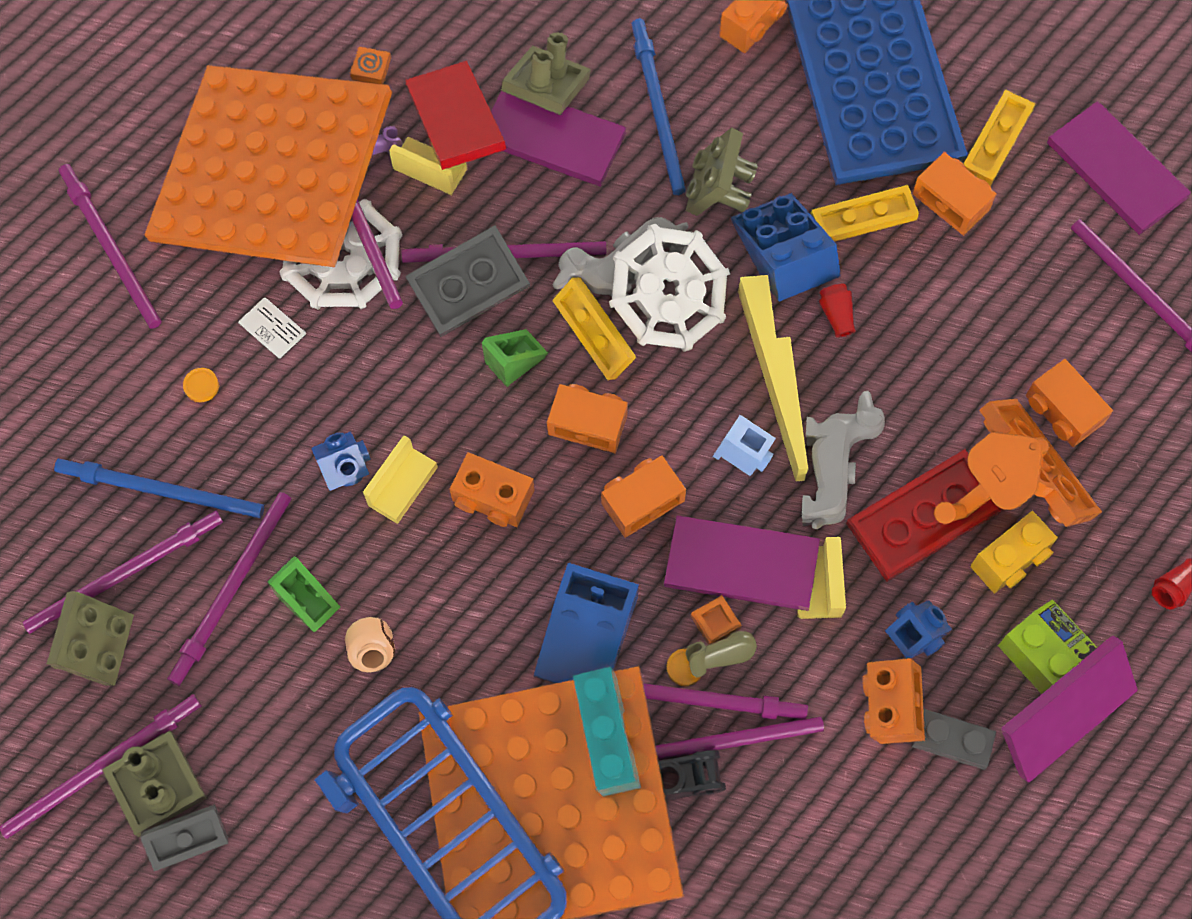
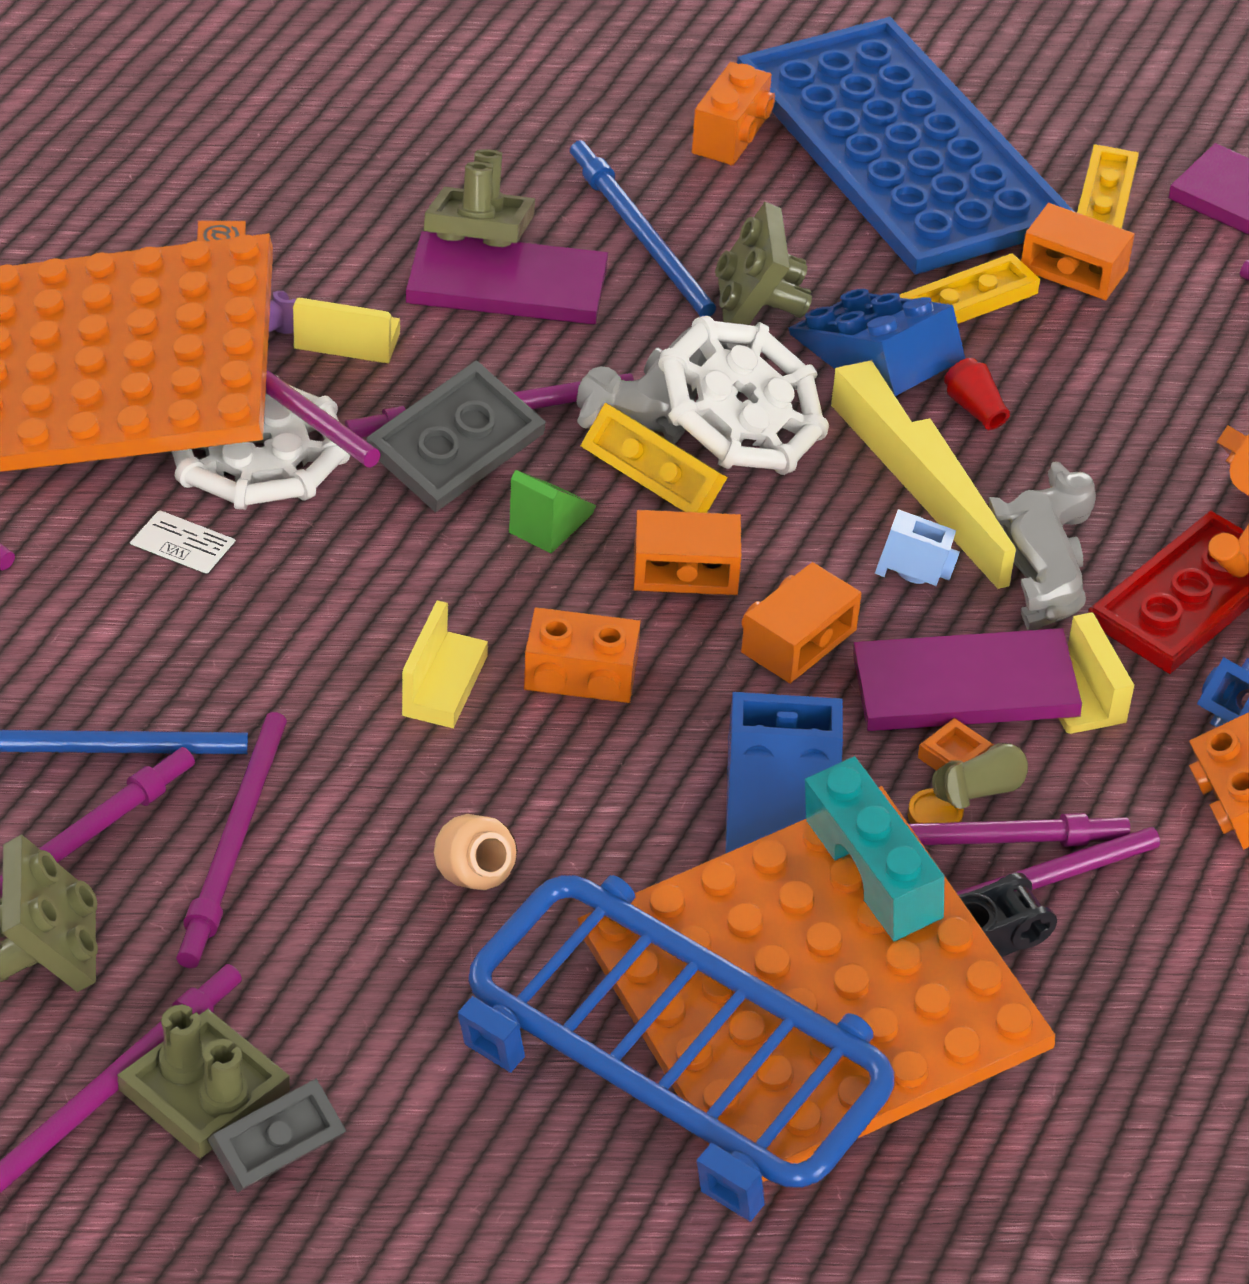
camera: 20 degrees left, 25 degrees down
(200, 385) = (100, 619): light orange piece -> none
(303, 594) = (348, 816): bright green slope -> none
(342, 460) = (350, 653): blue brick -> none
(455, 115) = (369, 263): red tile -> none

